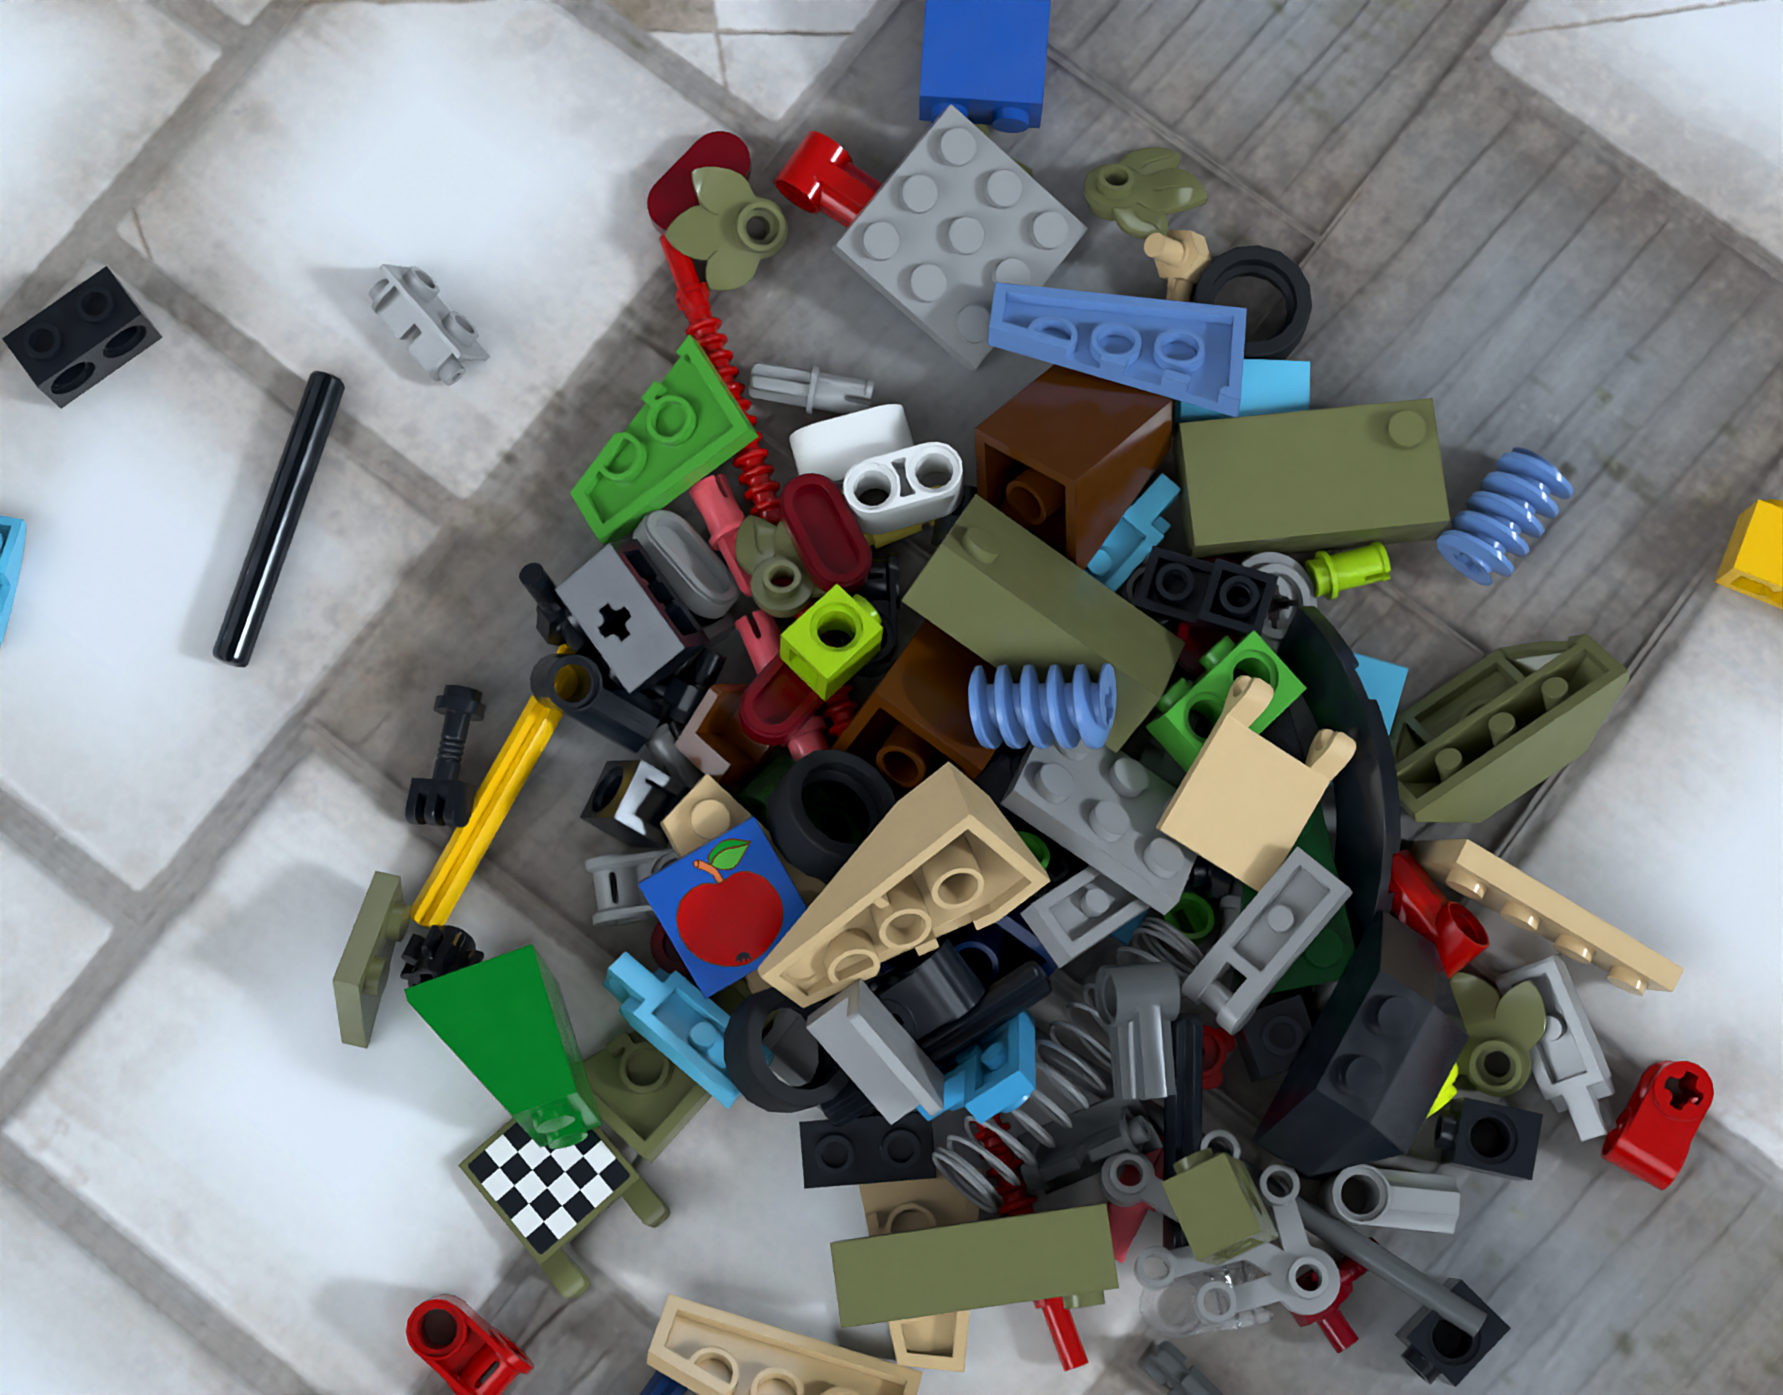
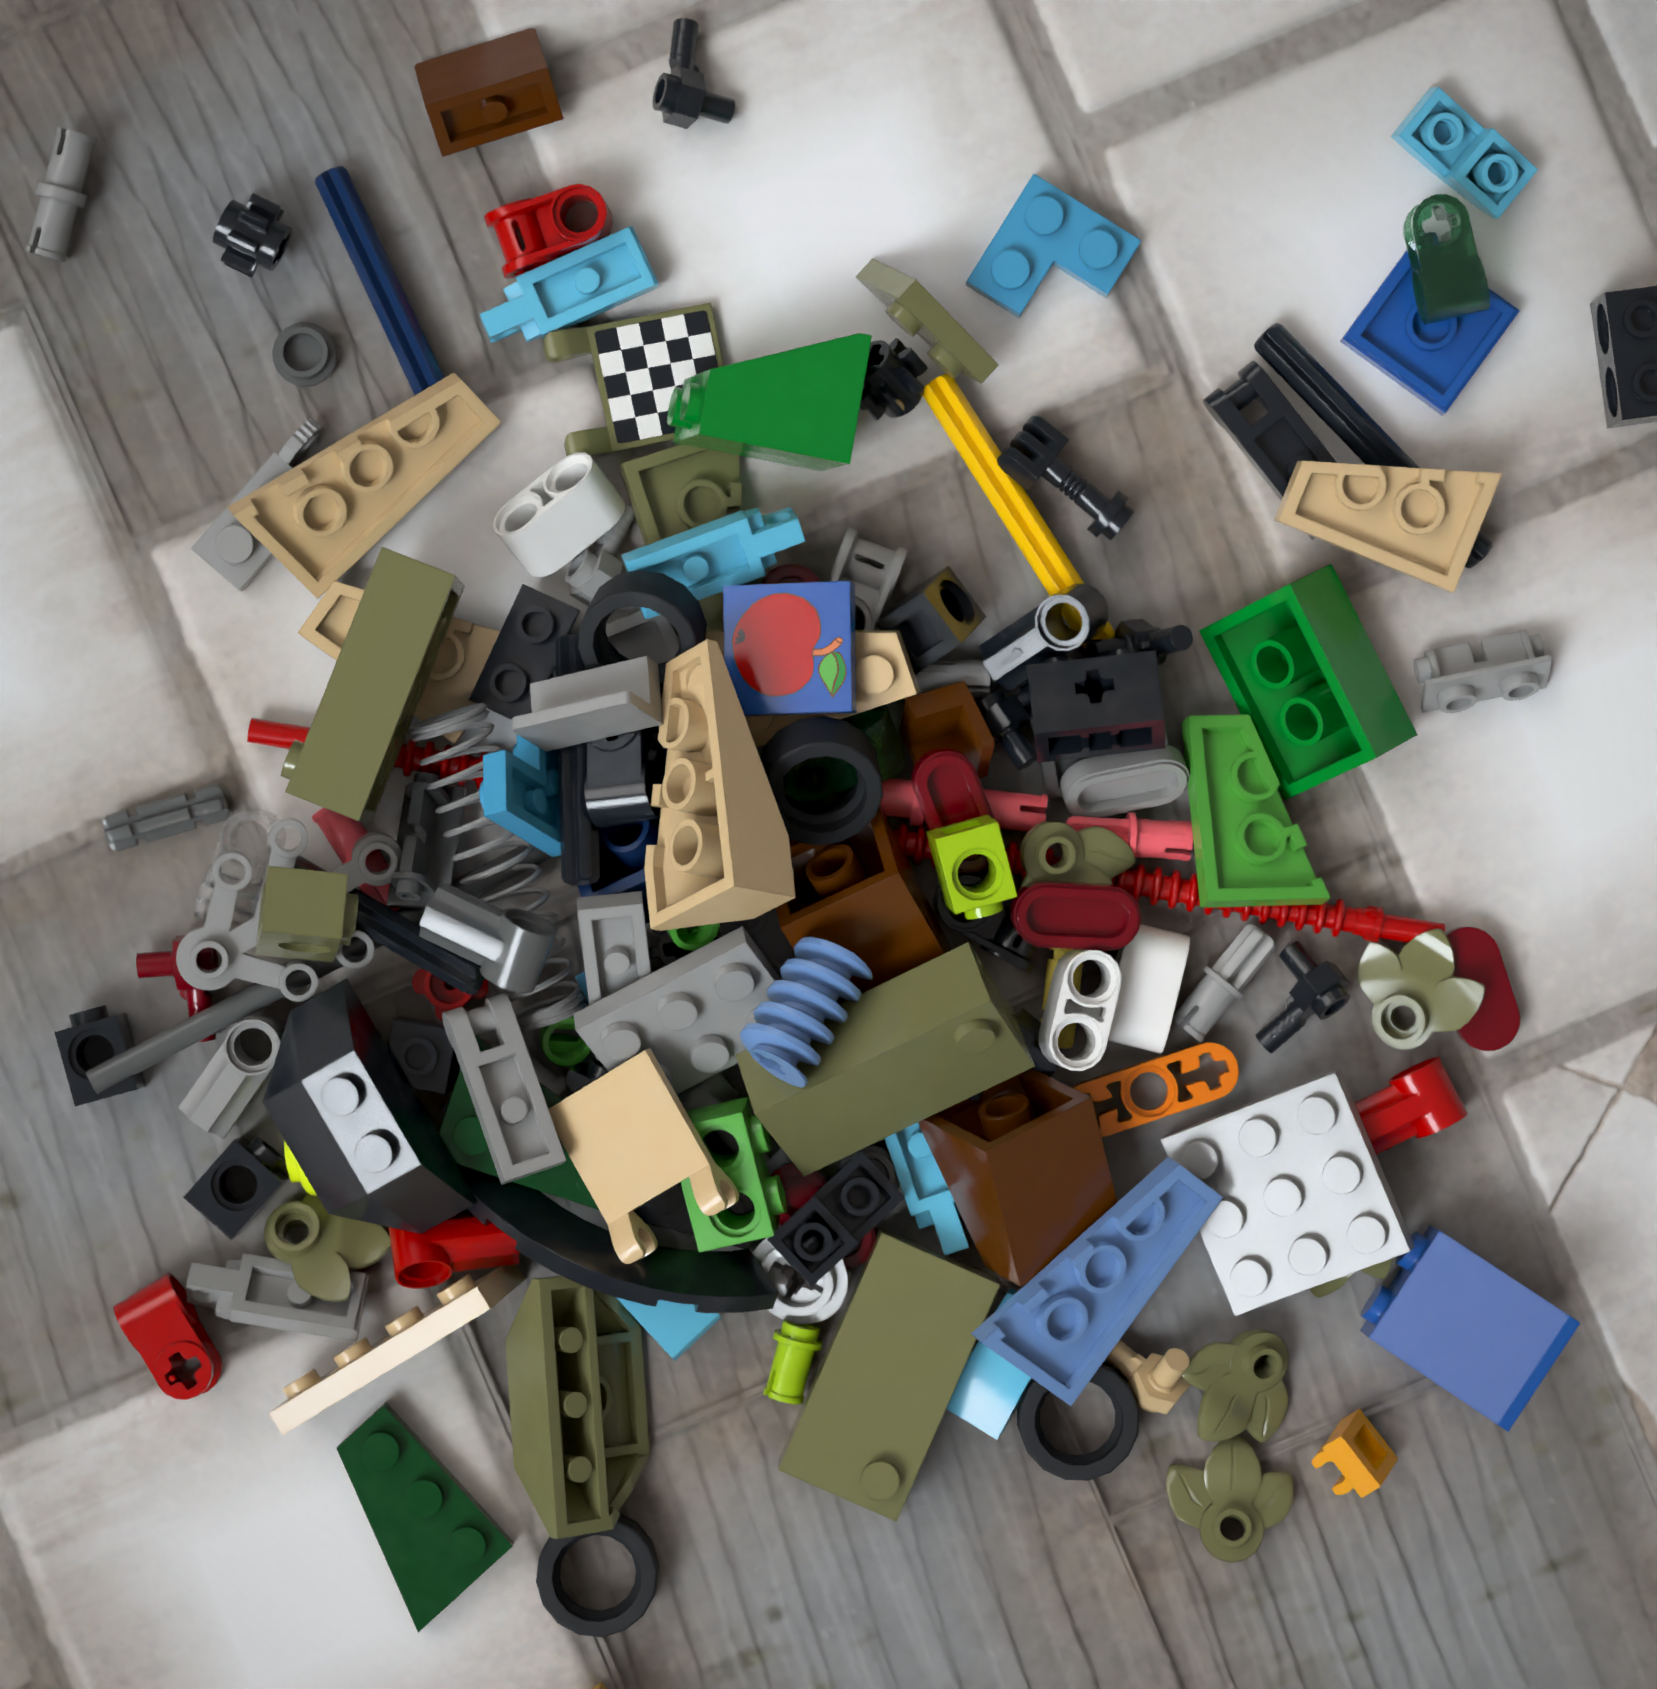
camera: 110 degrees right, 10 degrees up
(85, 535) = (1446, 273): none -> clear green piece
(149, 528) = (1425, 359): none -> blue tile
(236, 901) = (1047, 231): none -> dark azure plate
(275, 1298) = (683, 92): none -> black piece
(323, 588) = (1275, 439): none -> black plate
(329, 461) = (1392, 515): none -> tan wing
(510, 1297) = (573, 288): none -> medium azure hinge
(512, 457) = (1309, 681): none -> green slope
(723, 1191) = (559, 514): none -> white beam
(751, 1126) = (595, 568): none -> light grey piece
(775, 308) = (1317, 992): none -> black piece
(897, 384) = (1188, 1061): none -> orange beam
(1142, 67) = (1358, 1454): none -> light orange tile
(1236, 158) = (1229, 1489): none -> olive plate
(1501, 513) = (761, 1527): medium blue piece -> none
(1661, 599) = (607, 1621): none -> black tyre
(1672, 815) = (420, 1515): none -> dark green wing

